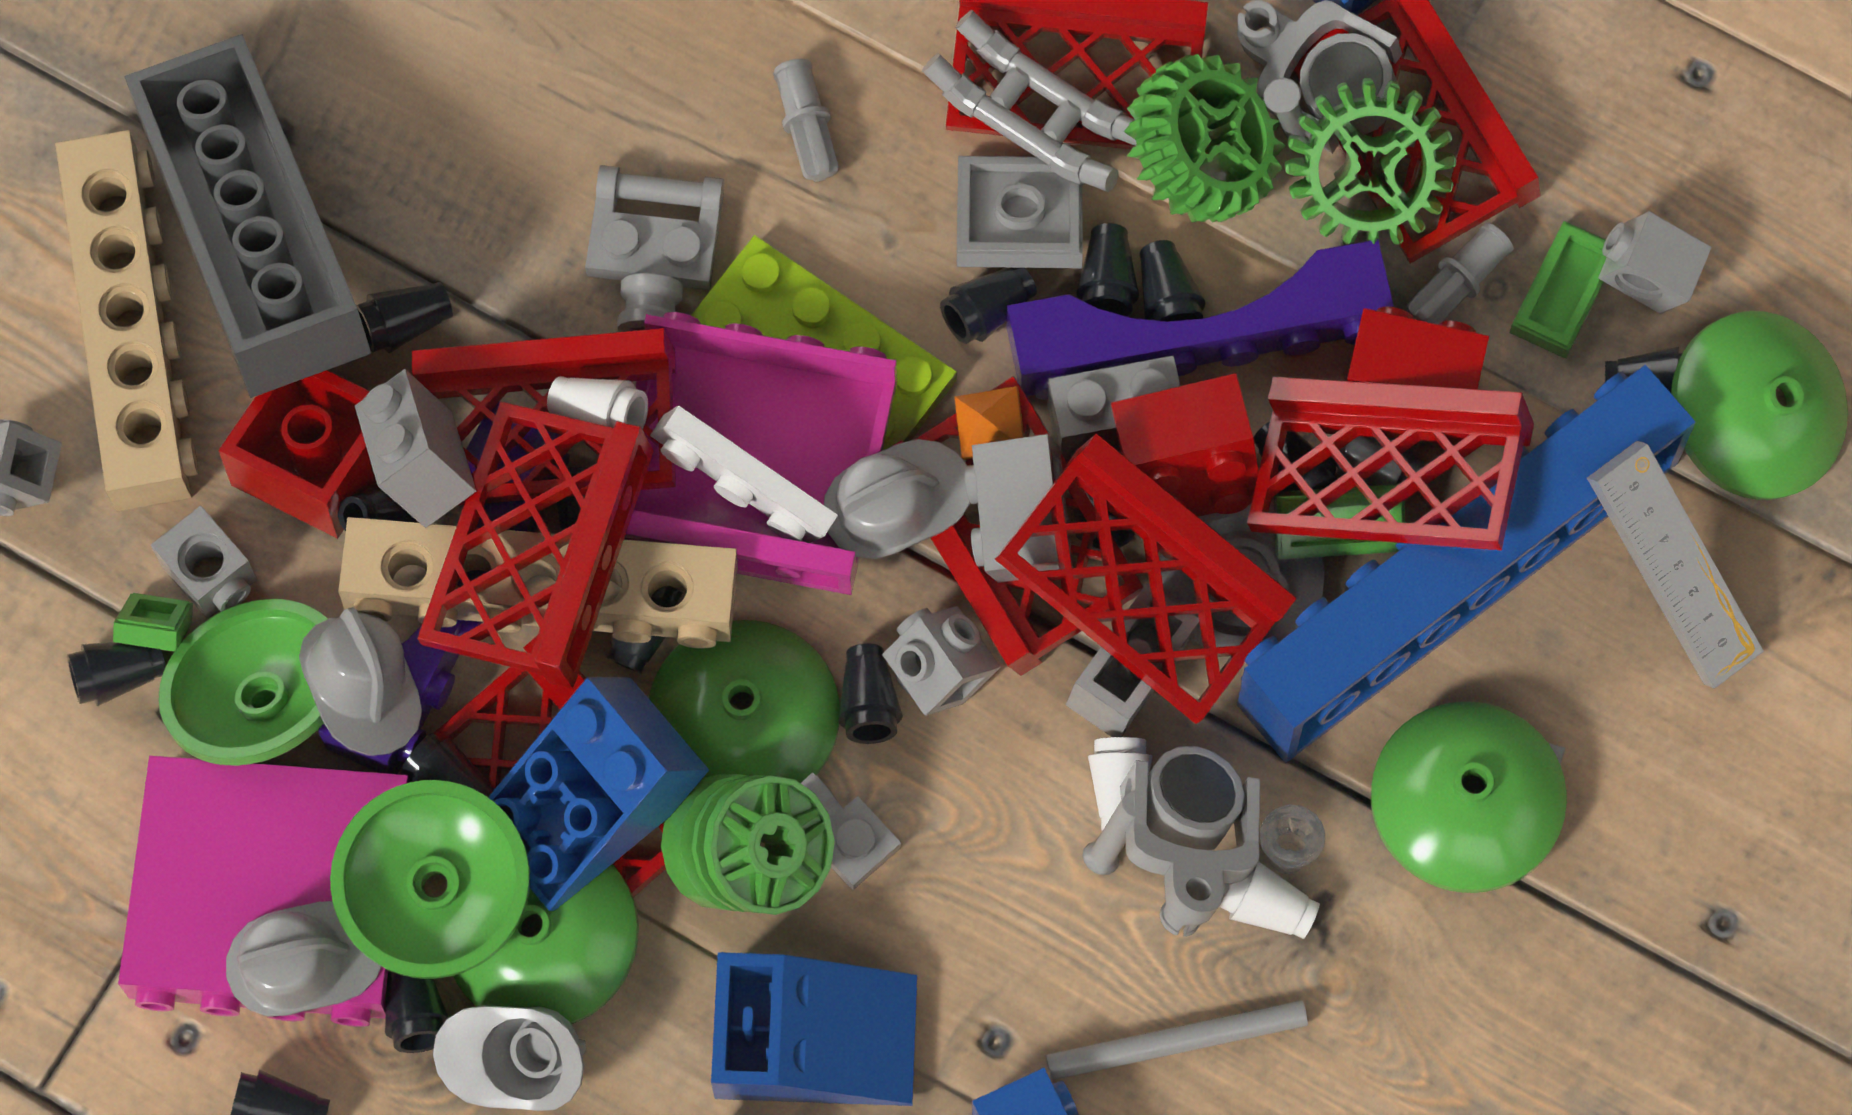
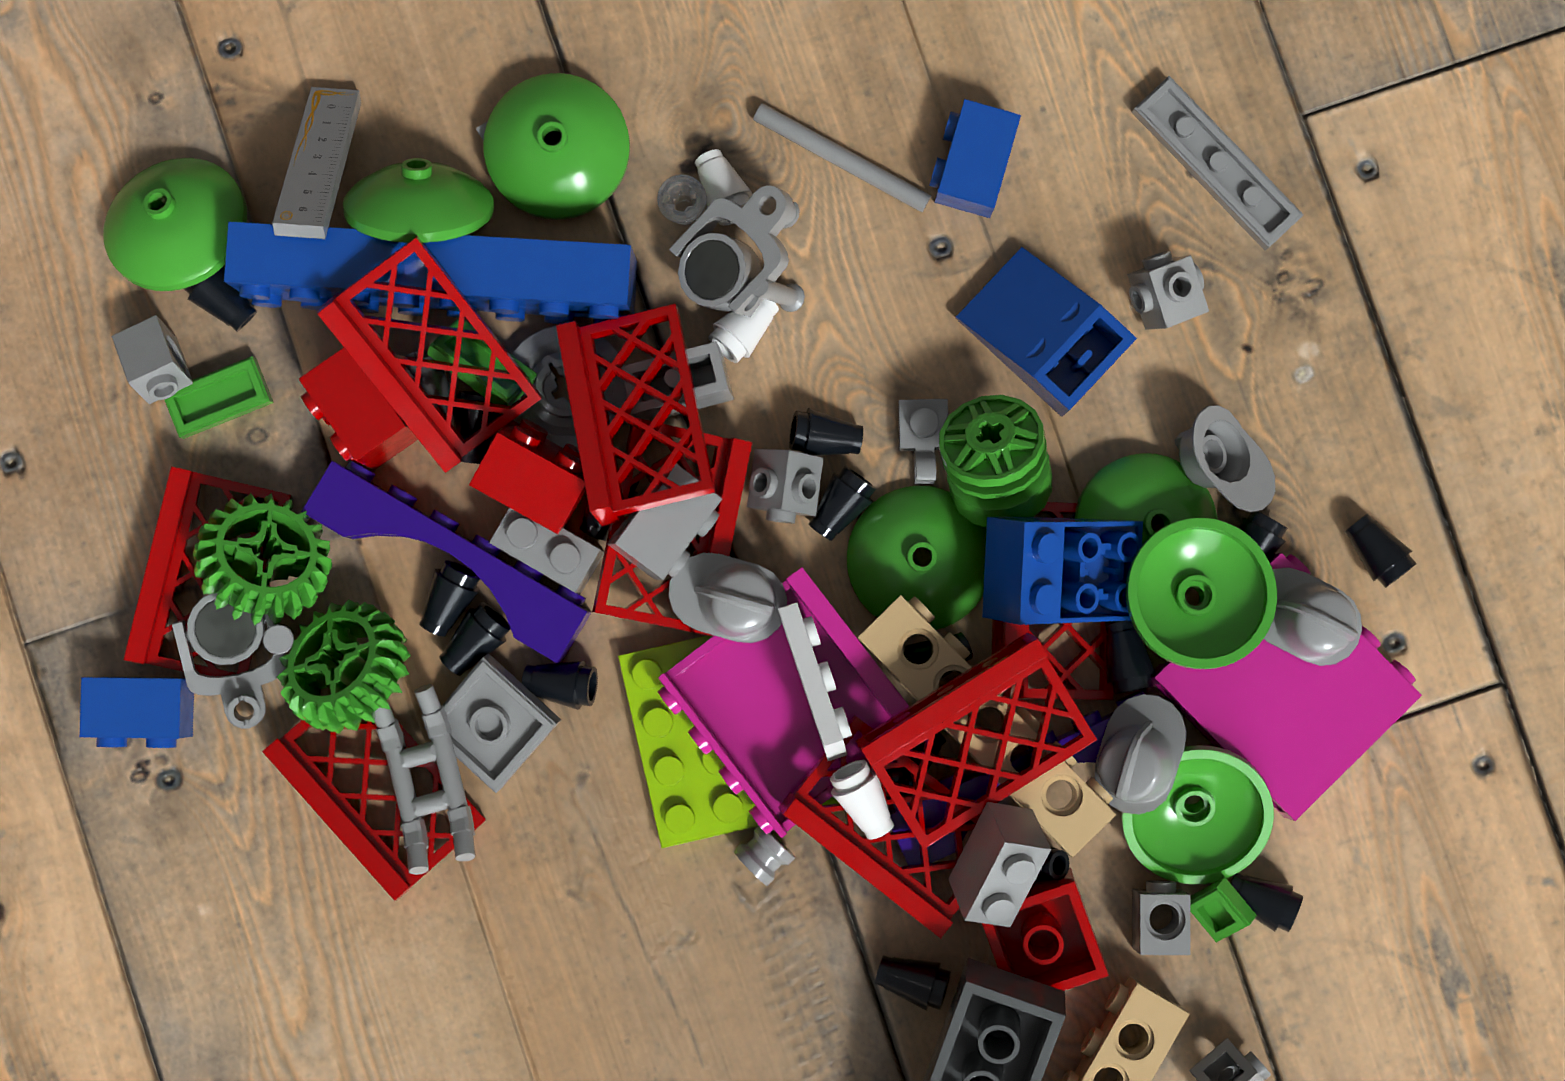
camera: 140 degrees left, 15 degrees up
(650, 244) = (727, 896): light grey plate -> none
(806, 119) = (565, 896): light grey axle -> none
(944, 745) = (824, 434): none -> black cone
(988, 418) = (633, 595): orange slope -> none
(1460, 275) = (272, 456): light grey axle -> none
(1539, 606) = (418, 201): none -> bright green dish

